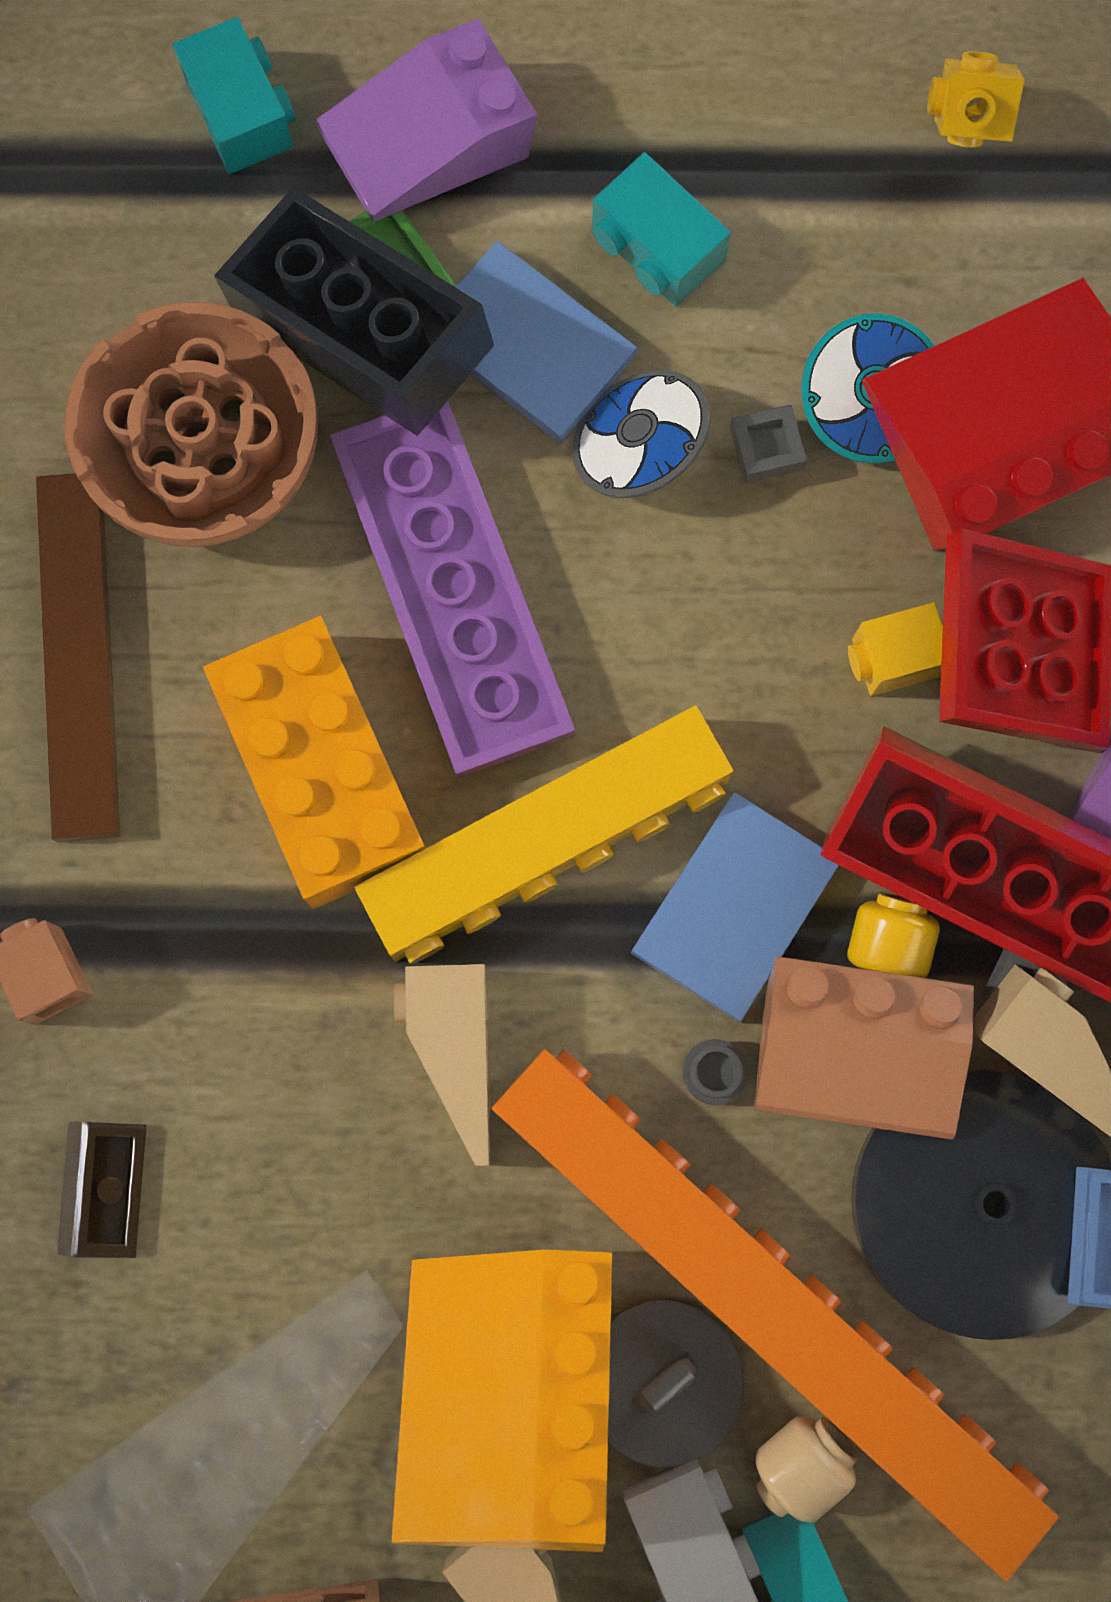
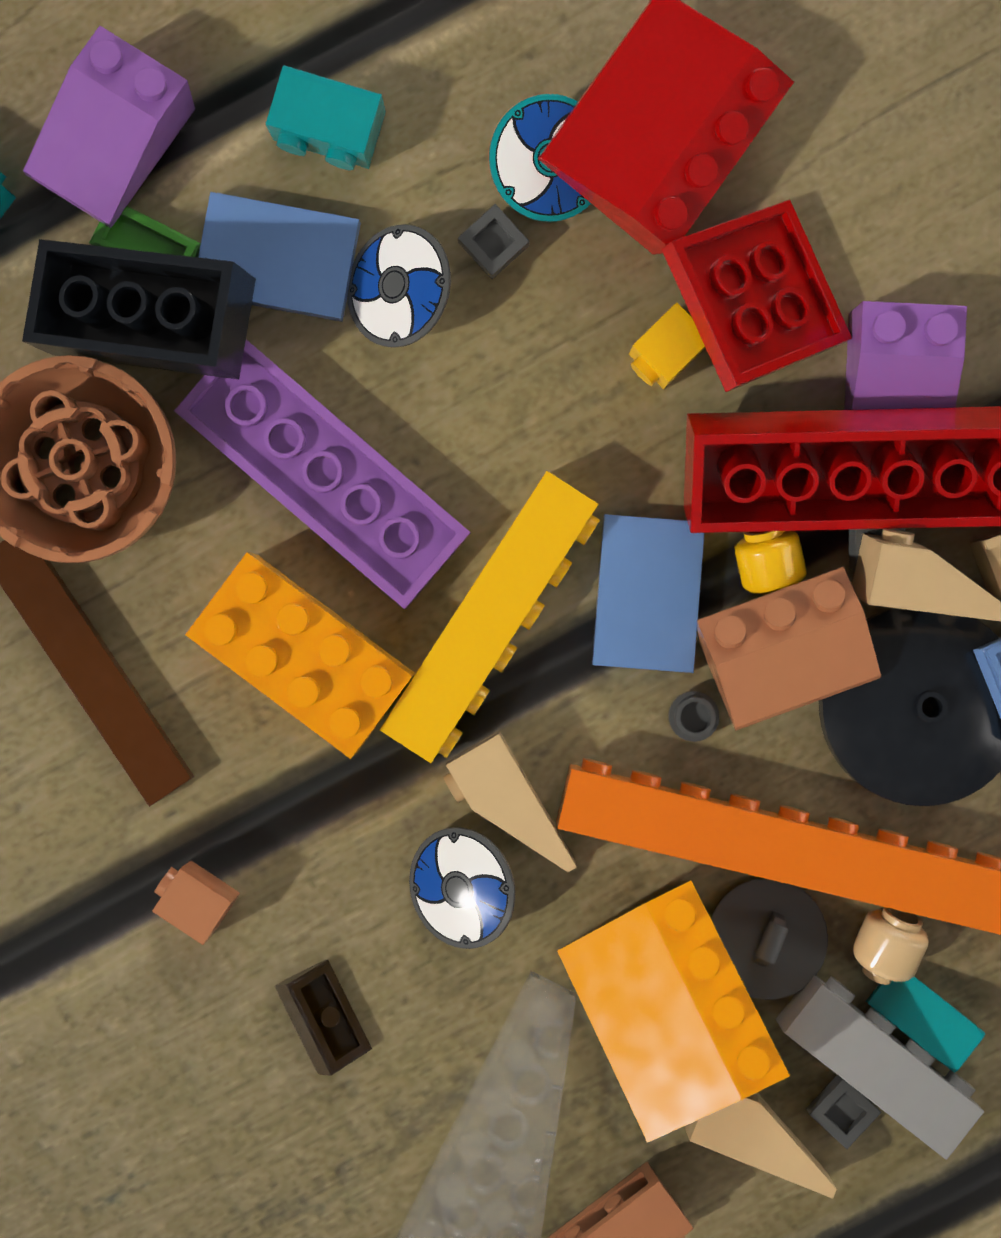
camera: 30 degrees left, 10 degrees up
(345, 1121) = (462, 888): none -> shield

